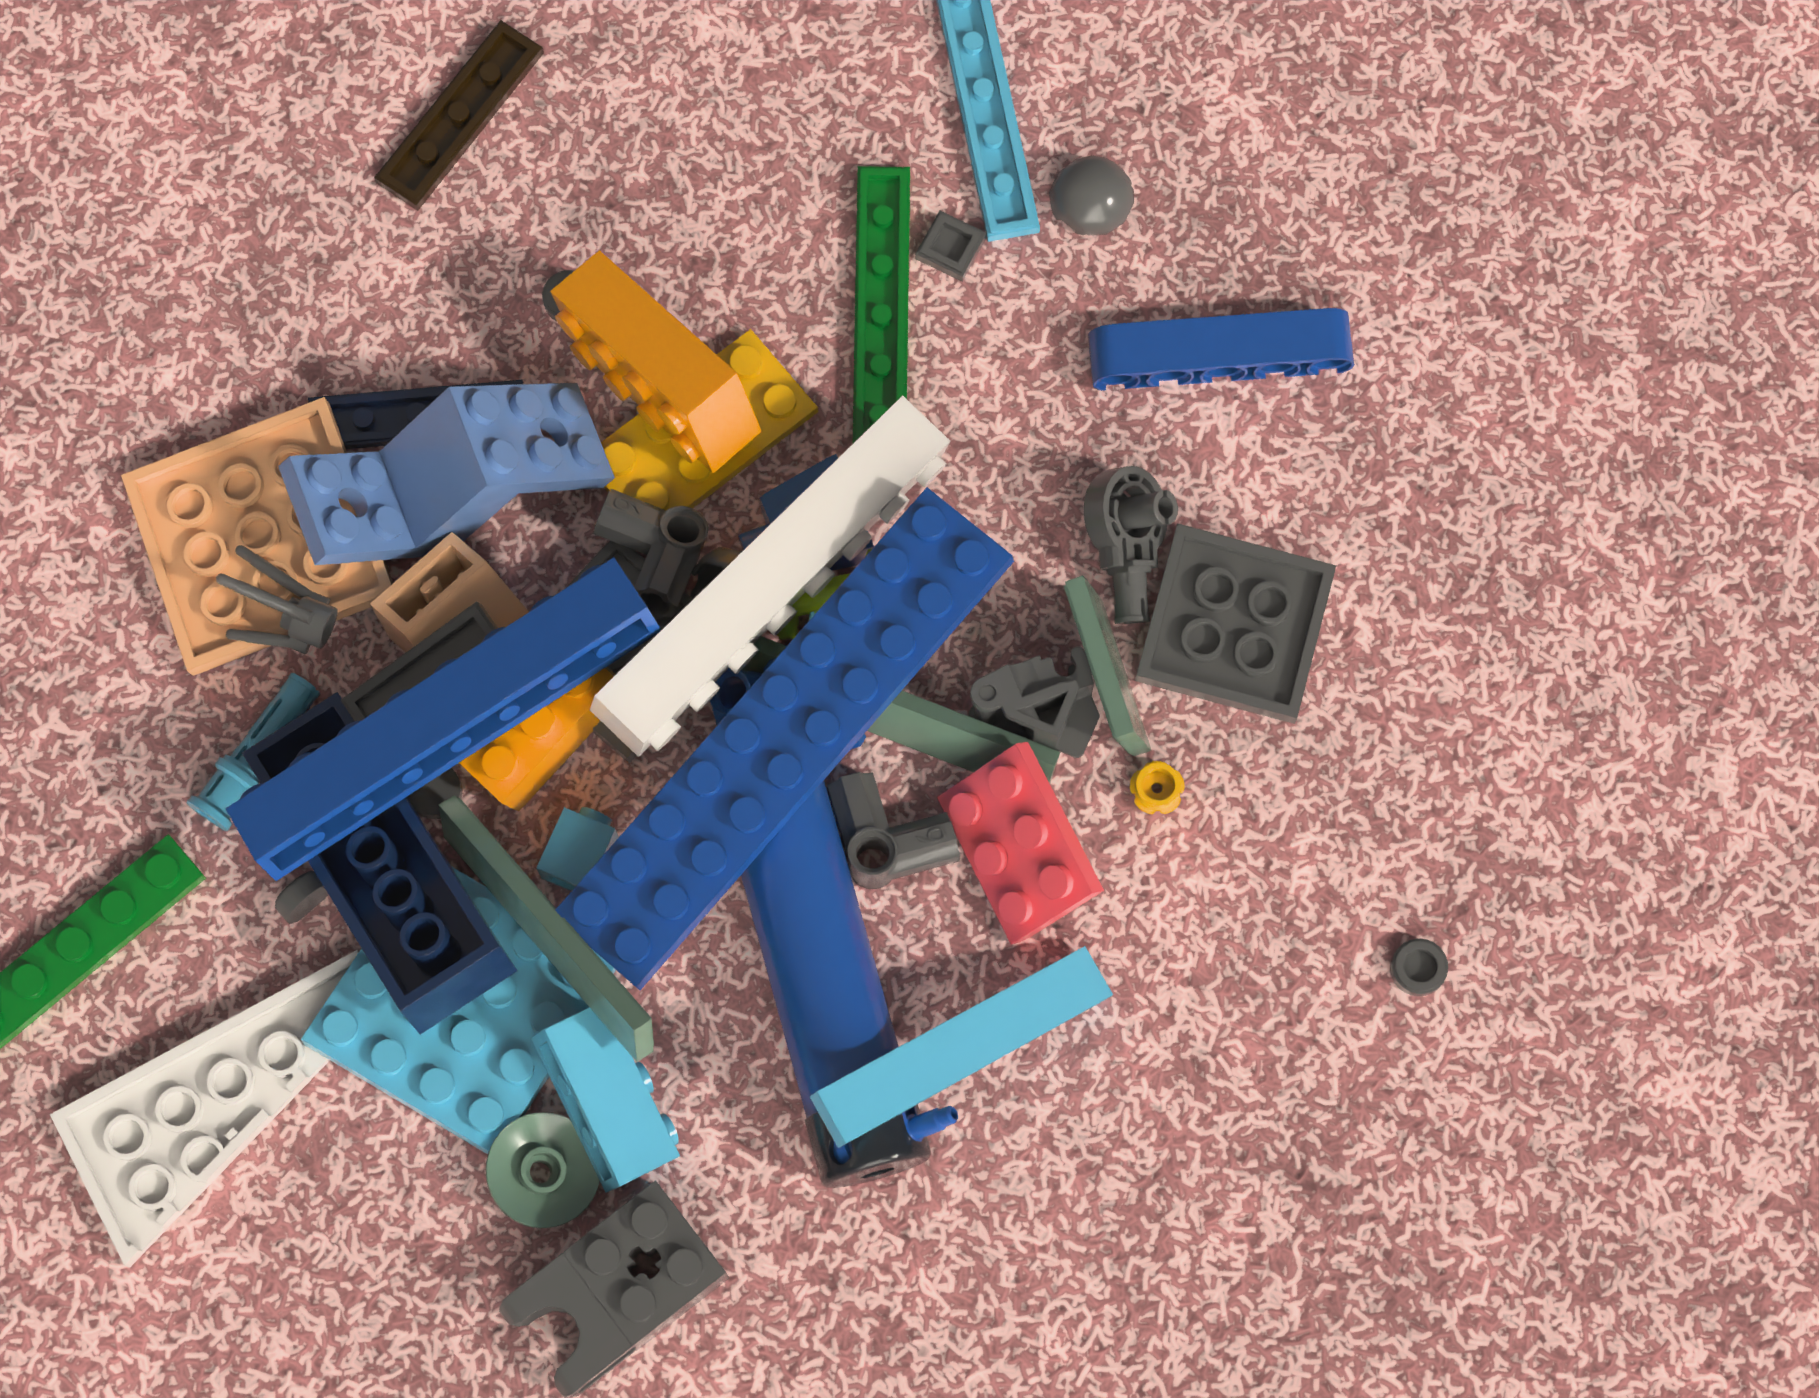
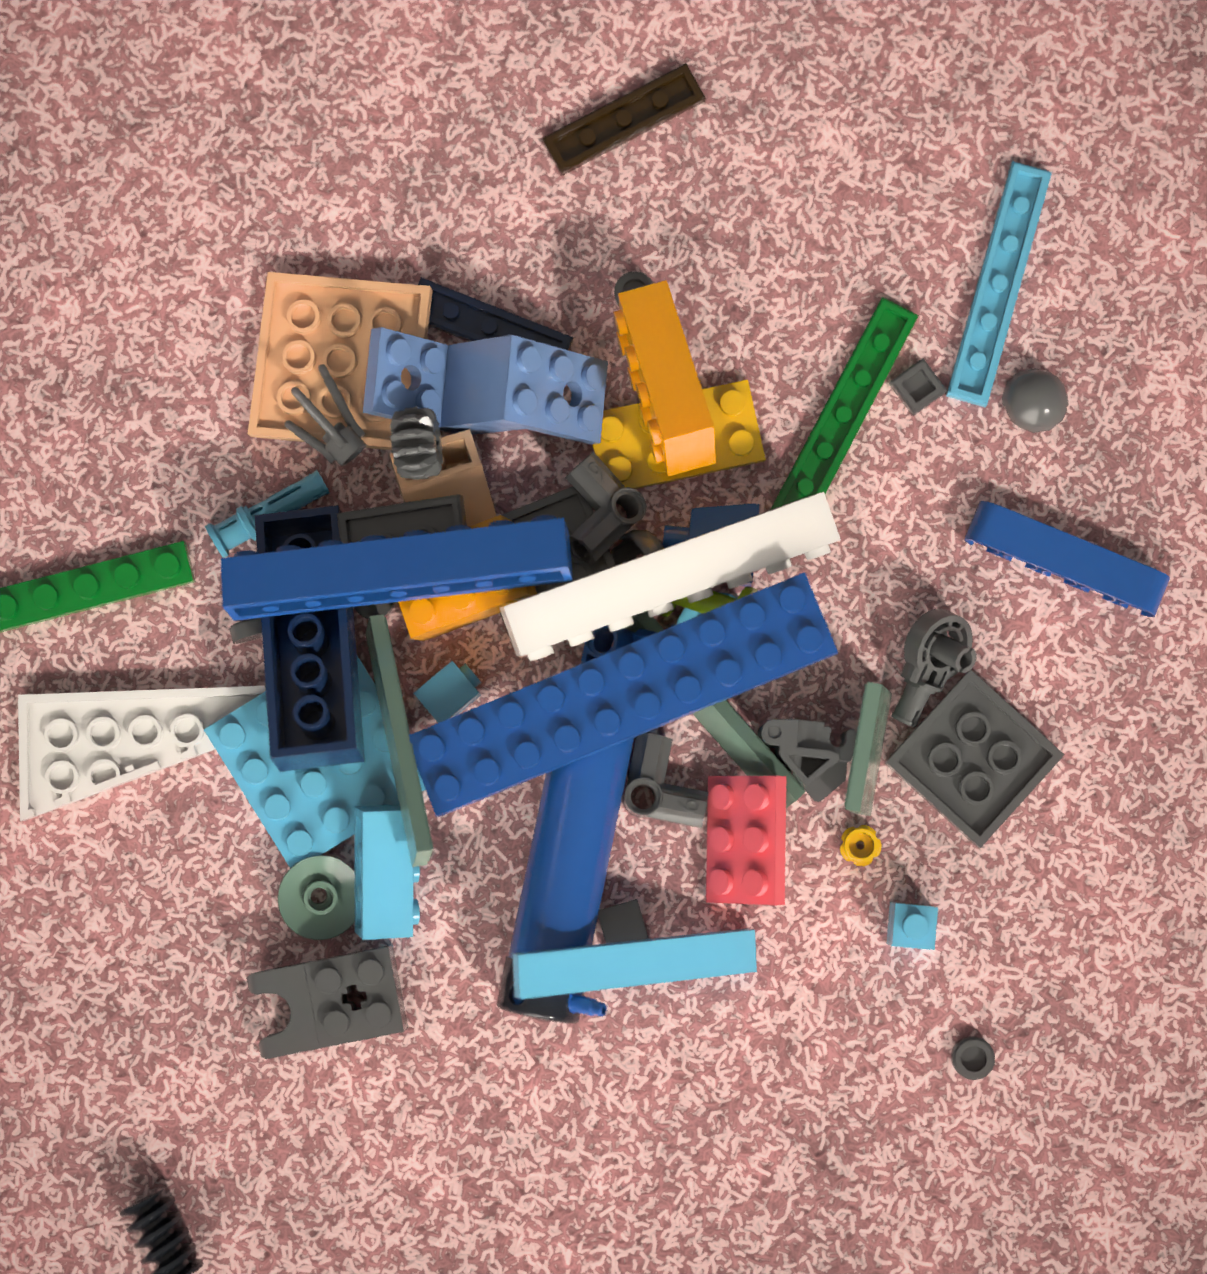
camera: 30 degrees right, 10 degrees up
(396, 567) = (416, 443): none -> dark grey gear
(921, 1013) = (622, 922): none -> dark grey tile
(1265, 845) = (912, 926): none -> medium azure brick

